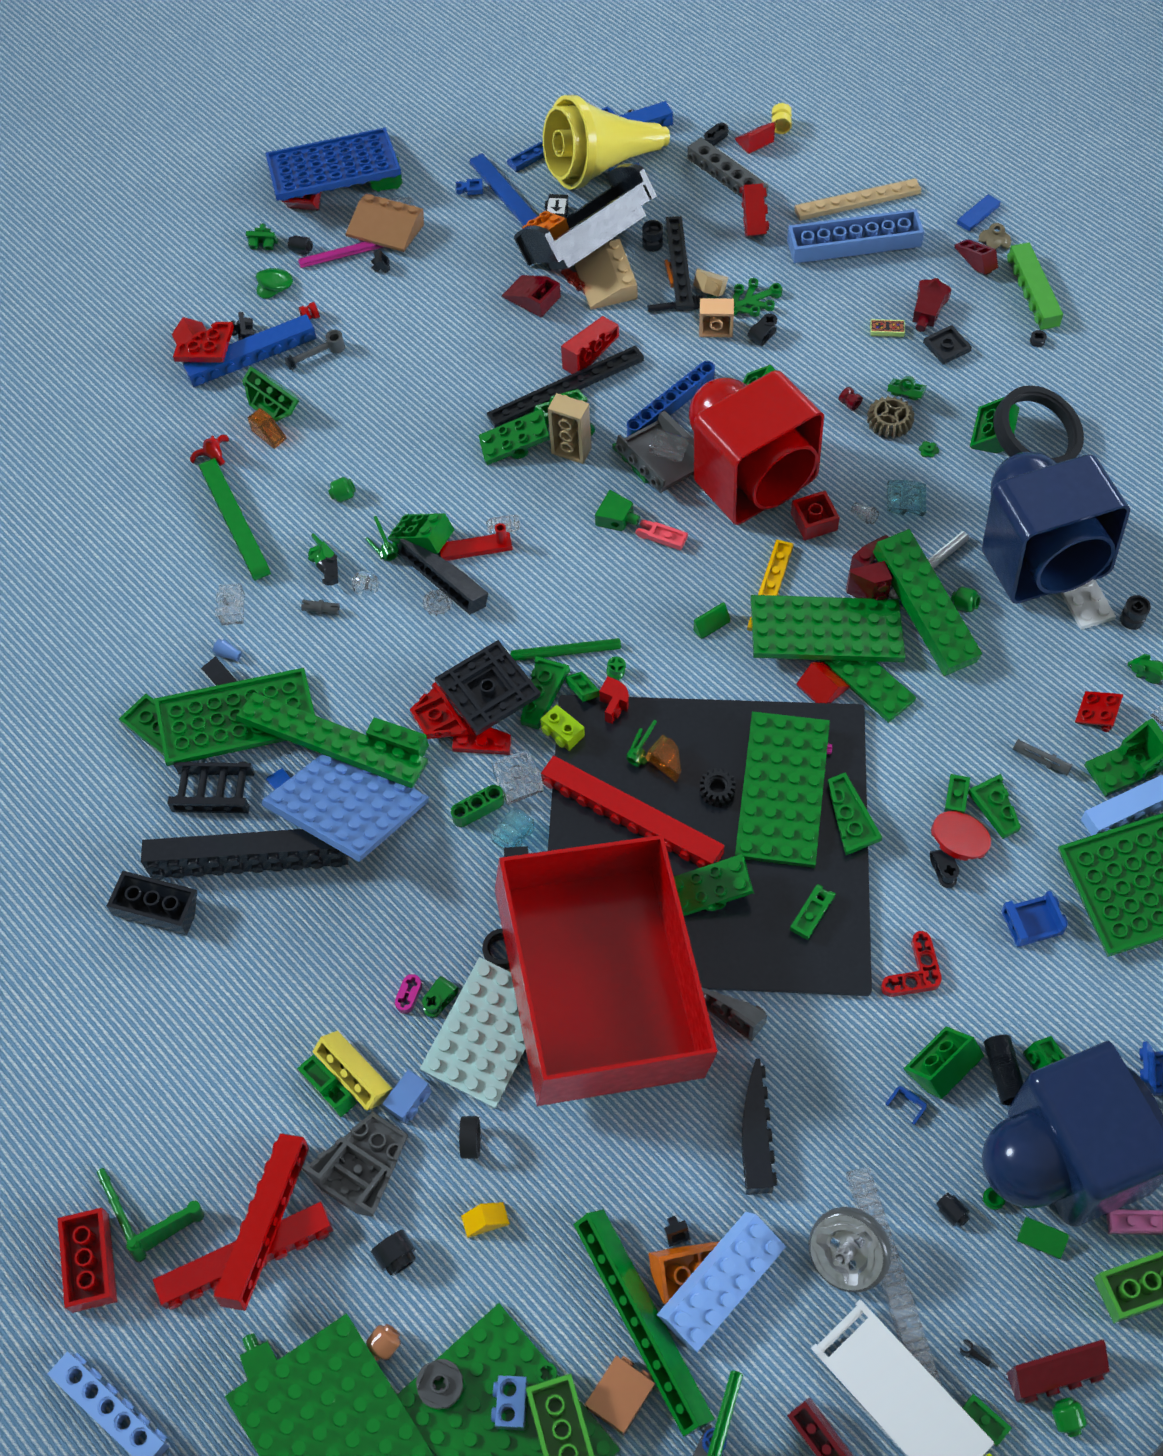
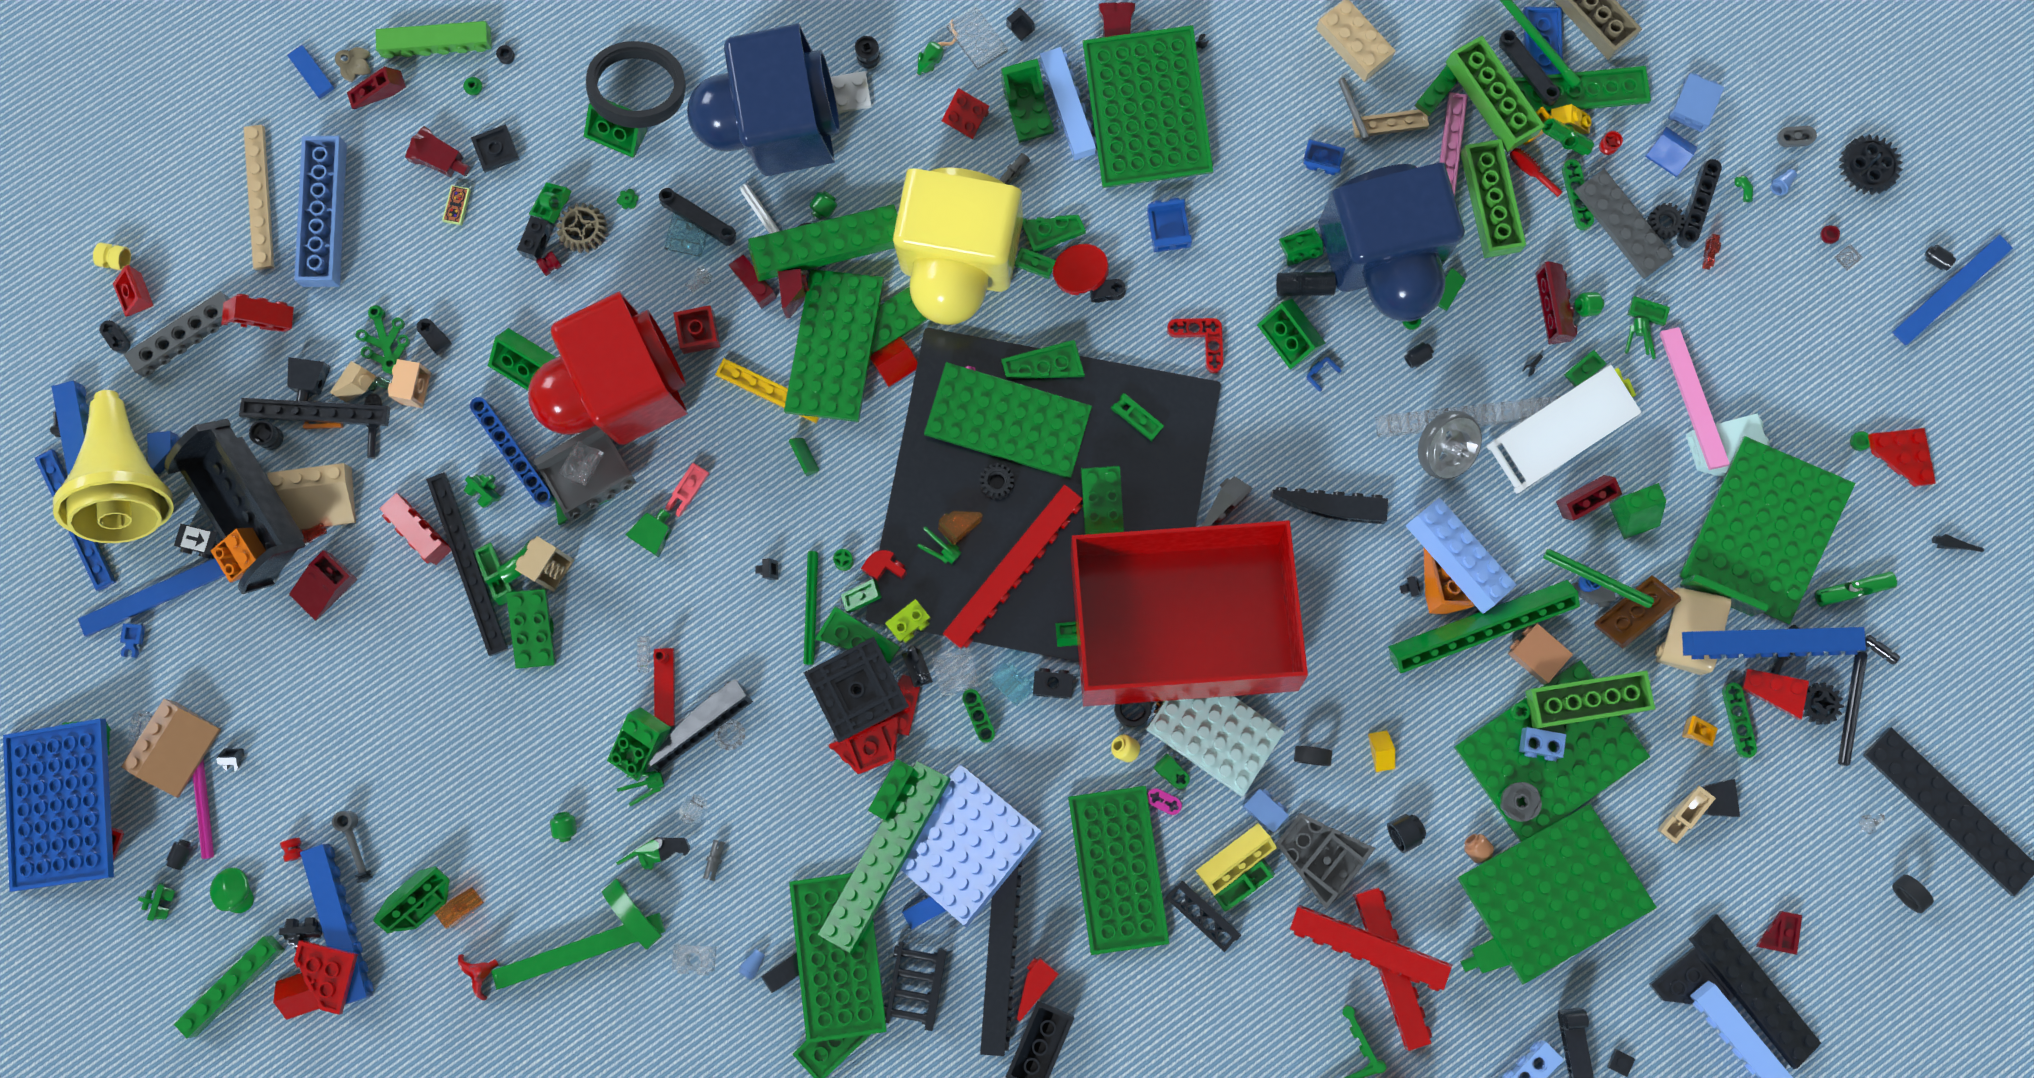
camera: 85 degrees left, 20 degrees up
(196, 292) = (229, 987): none -> green brick
(213, 887) = (1037, 981): none -> red slope
(252, 555) = (630, 914): none -> green slope
(295, 1051) = (1207, 909): none -> black fence
(333, 957) = (1118, 870): none -> green plate
(458, 944) = (1125, 748): none -> light yellow head
(520, 743) = (916, 667): none -> black hinge
(596, 608) = (768, 569): none -> black tile
(635, 384) = (485, 487): none -> green hips
(707, 253) = (306, 377): none -> black torso
(871, 384) = (535, 238): none -> black brick
(925, 499) = (697, 216): none -> black piece
(957, 699) = (956, 239): none -> light yellow piece
(1000, 320) = (476, 89): none -> green plate

